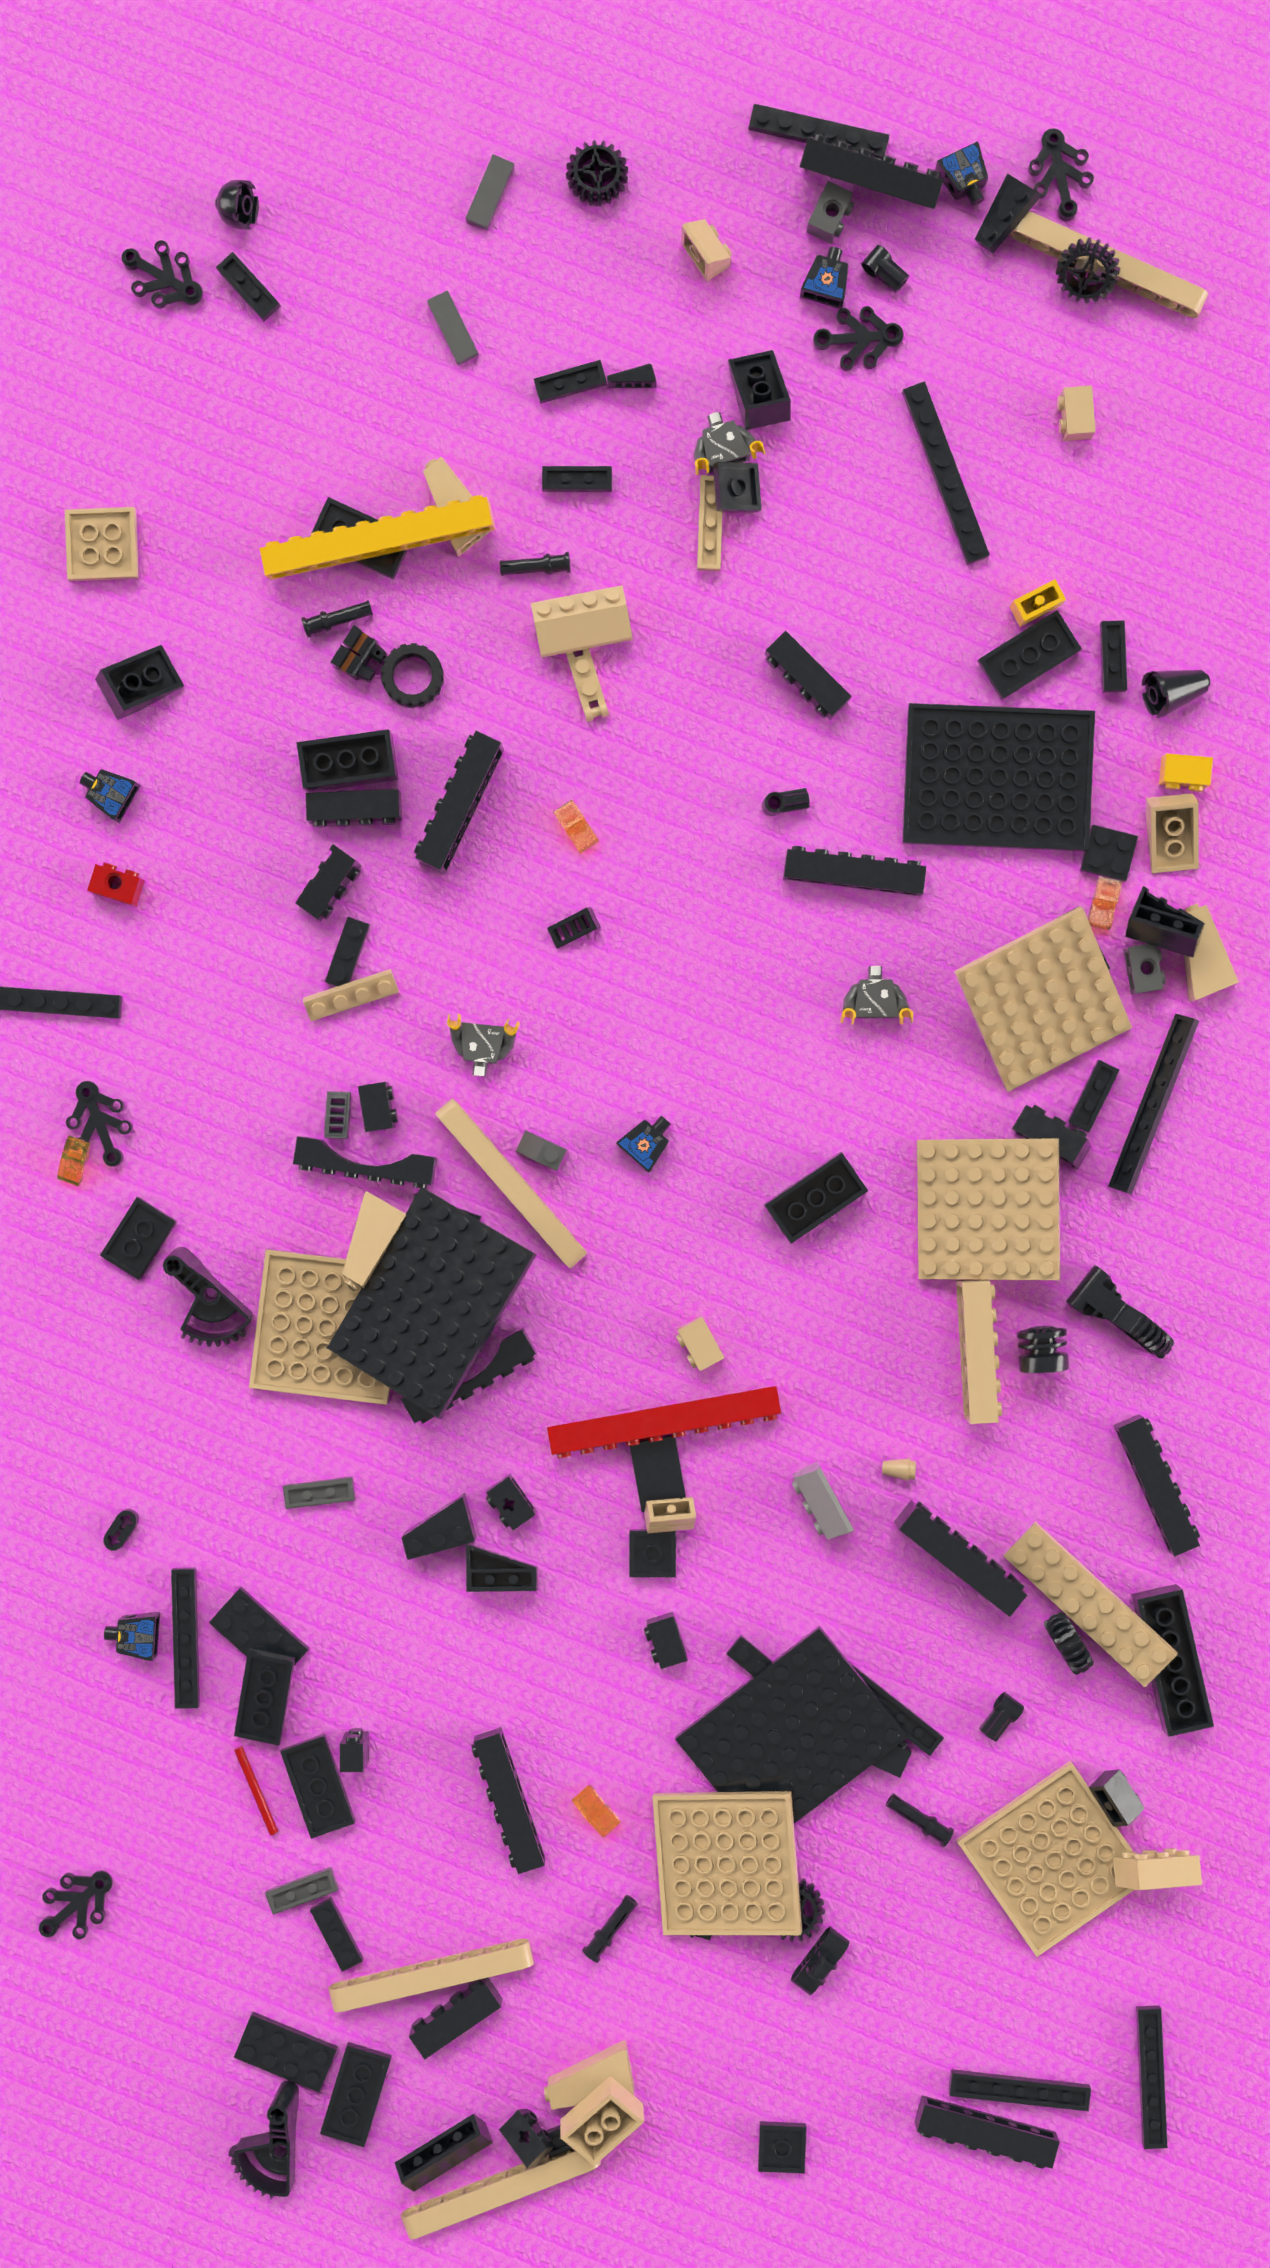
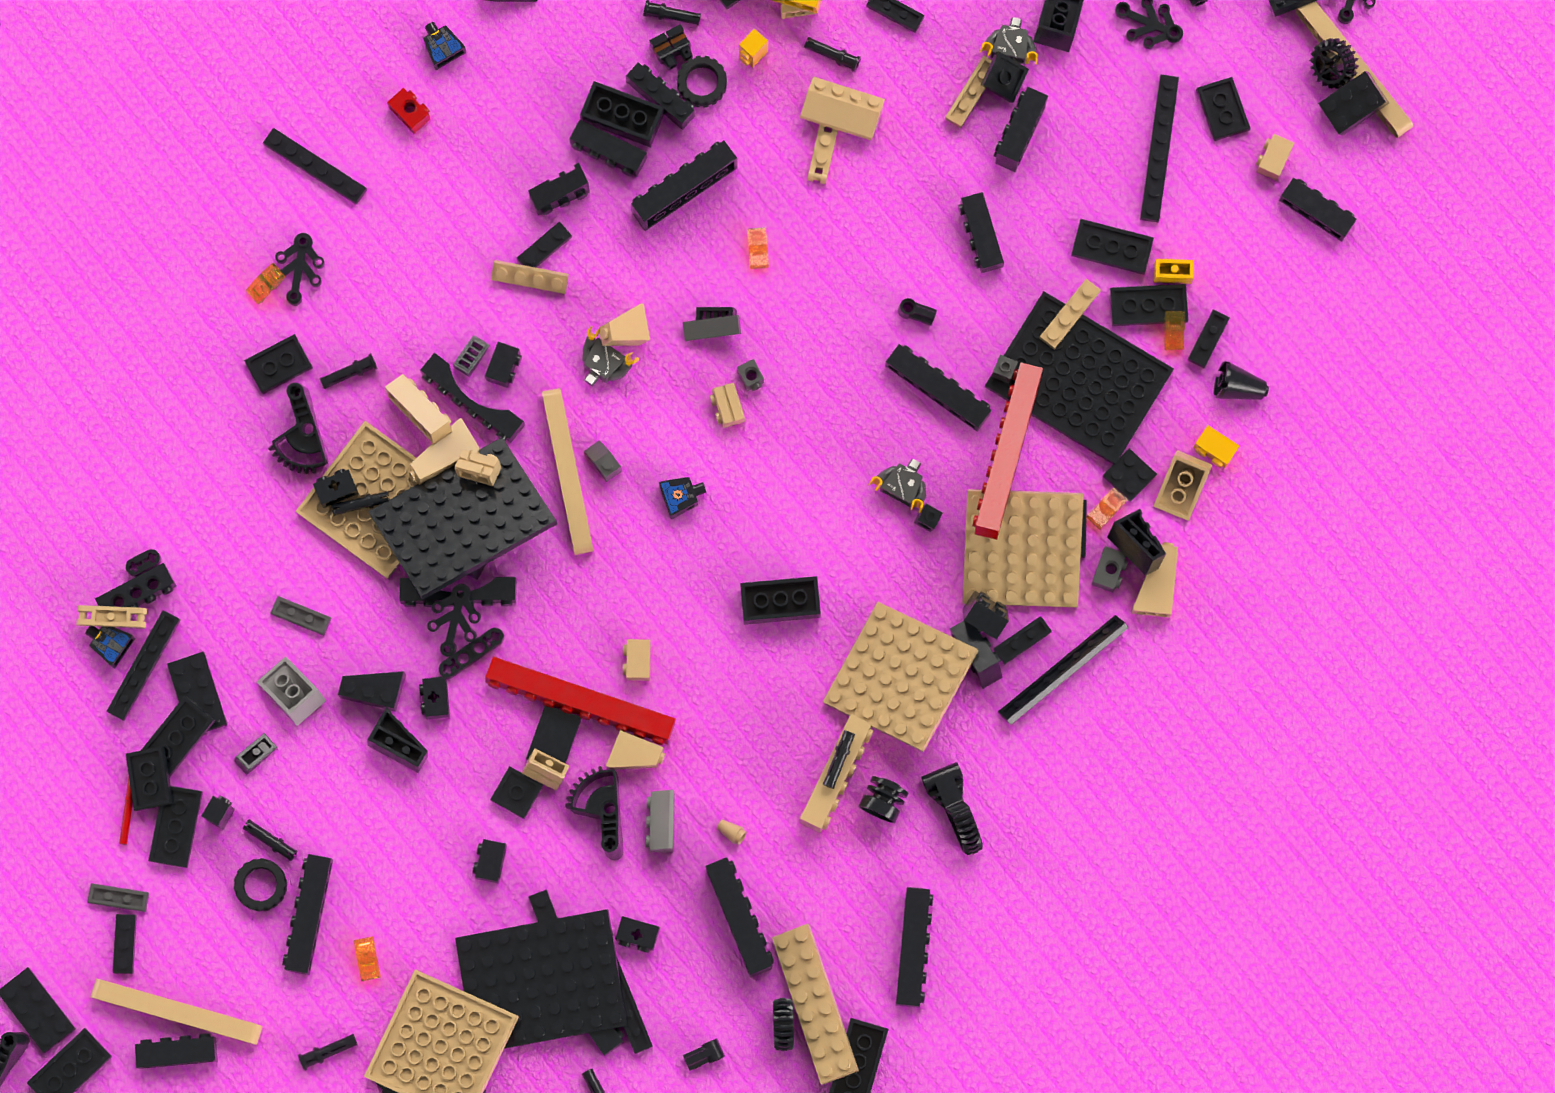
camera: 30 degrees right, 10 degrees down
(108, 1595) = (159, 573): none -> black brick
(121, 1612) = (111, 616): none -> tan plate
(223, 1197) = (356, 368): none -> black pin
(261, 1755) = (149, 778): none -> black tile
(289, 1335) = (345, 486): none -> black brick
(316, 1207) = (418, 408): none -> tan brick
(320, 1335) = (360, 503): none -> black pin
(356, 1579) = (291, 691): none -> light grey slope
(356, 1662) = (255, 753): none -> slope
(377, 717) = (657, 92): none -> black brick
(416, 1238) = (478, 467): none -> tan brick
(424, 1745) = (276, 844): none -> black pin
(441, 1821) = (245, 870): none -> black tyre
(447, 608) = (753, 48): none -> yellow brick
(484, 1408) = (456, 617): none -> black plant
(486, 995) = (626, 329): none -> tan slope
(522, 1433) = (469, 650): none -> black beam
(577, 942) = (711, 328): none -> dark grey tile
(640, 963) = (750, 367): none -> dark grey brick
(641, 1017) = (728, 405): none -> tan brick
(745, 1524) = (596, 808): none -> black arm
(752, 1444) = (634, 753): none -> tan slope
(788, 535) = (1021, 128): none -> black brick
(850, 1627) = (648, 931): none -> black brick
(917, 814) = (1004, 369): none -> dark grey brick
(923, 1021) = (928, 517): none -> black brick
(952, 712) = (1070, 314): none -> tan plate
(955, 612) = (1112, 246): none -> black plate
(976, 906) = (1008, 451): none -> brick
(977, 1332) = (841, 753): none -> black pin
(990, 390) = (1223, 108): none -> black tile
(1043, 1093) = (986, 614): none -> black brick
(1072, 668) = (1174, 330): none -> slope
(1133, 304) = (1353, 103): none -> black brick
(1154, 445) = (1318, 209): none -> black brick

